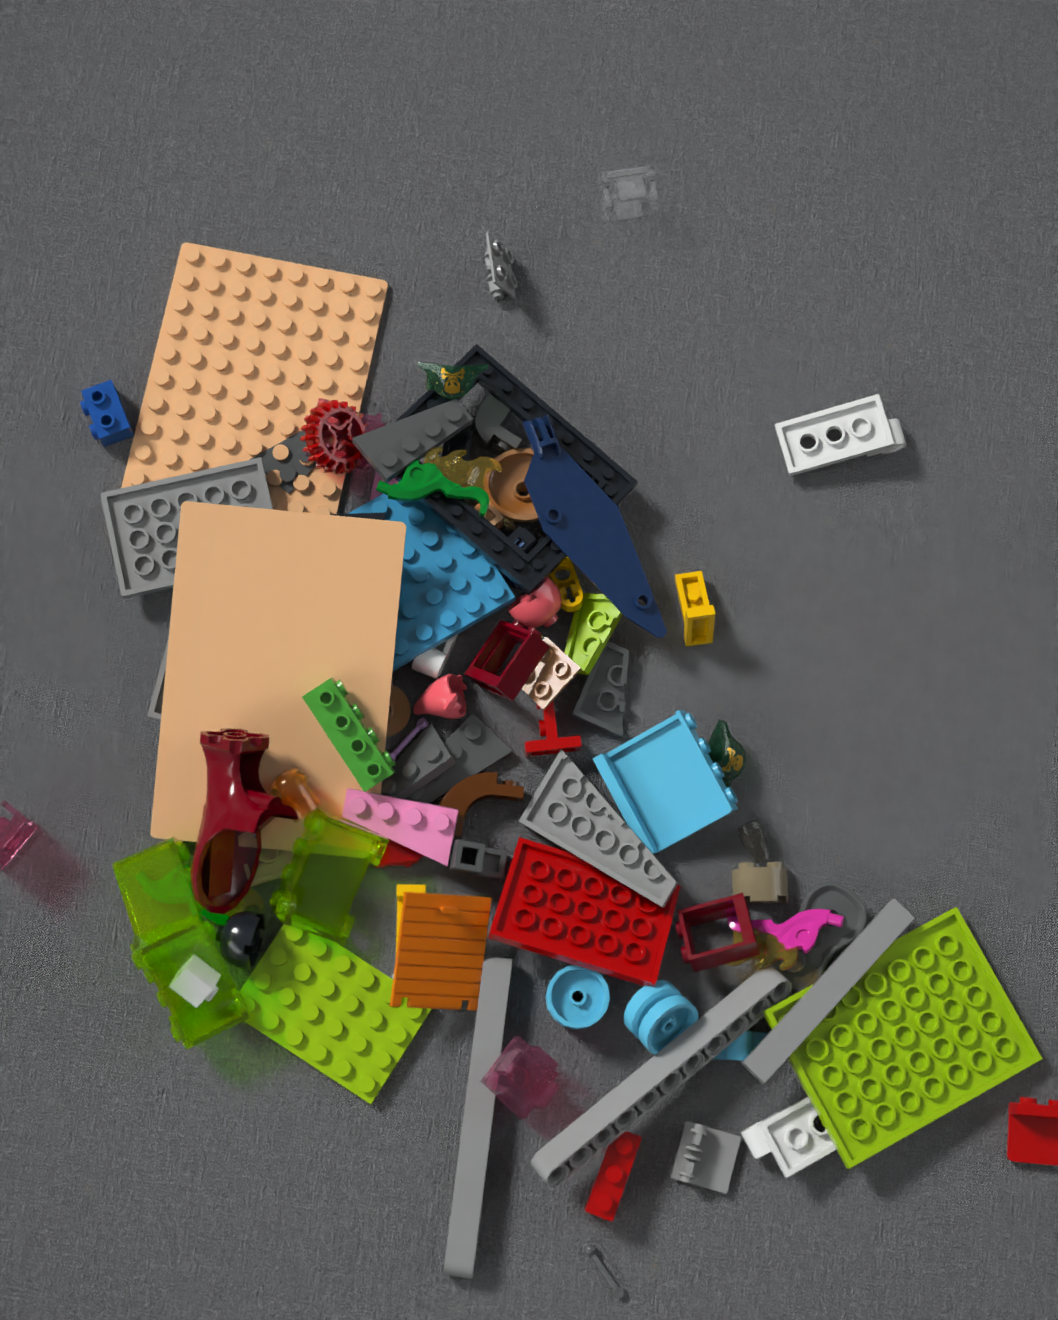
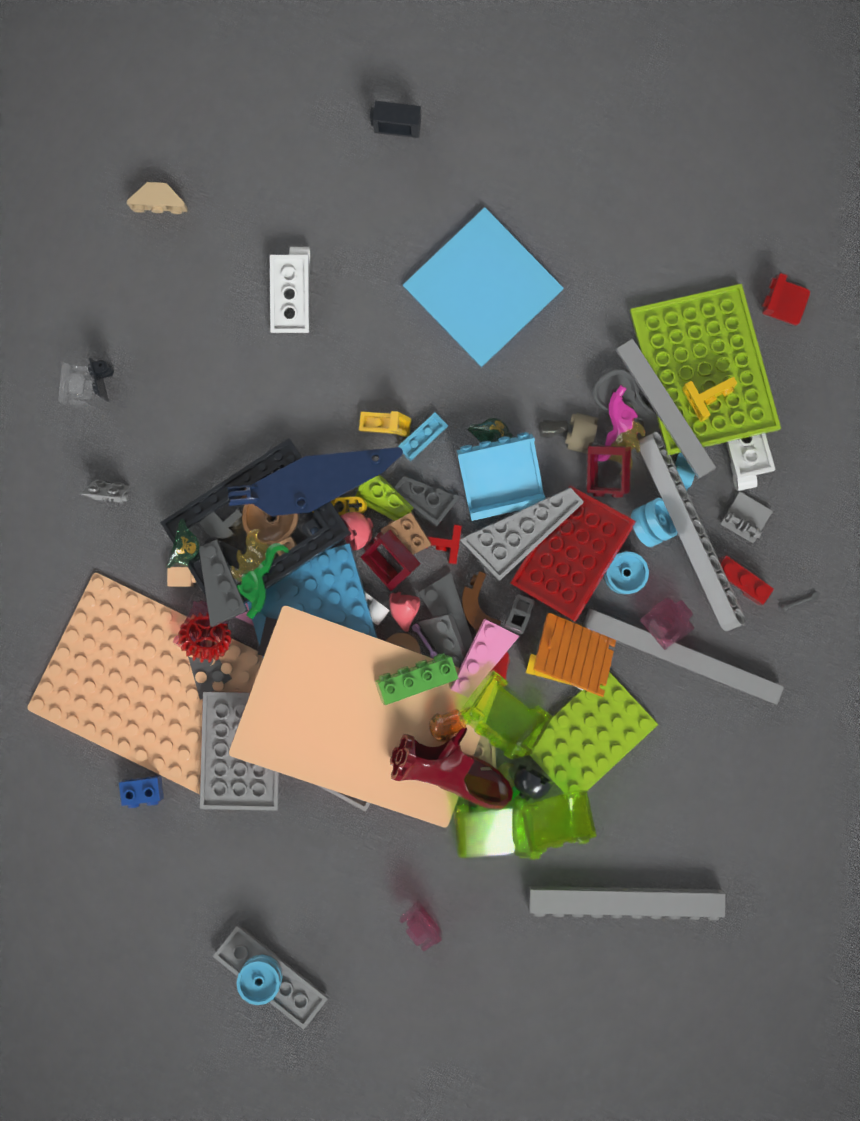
camera: 65 degrees left, 10 degrees up
(101, 1126) = (626, 901): none -> light grey brick
(196, 981) = (554, 820): white brick -> none
(408, 388) = (180, 577): none -> light nougat brick
(655, 217) = (100, 370): none -> black hinge
(691, 663) = (423, 436): none -> medium azure hinge
(864, 1046) = (709, 396): none -> yellow bracket
(908, 234) = (158, 198): none -> tan slope
(923, 694) = (483, 287): none -> medium azure tile

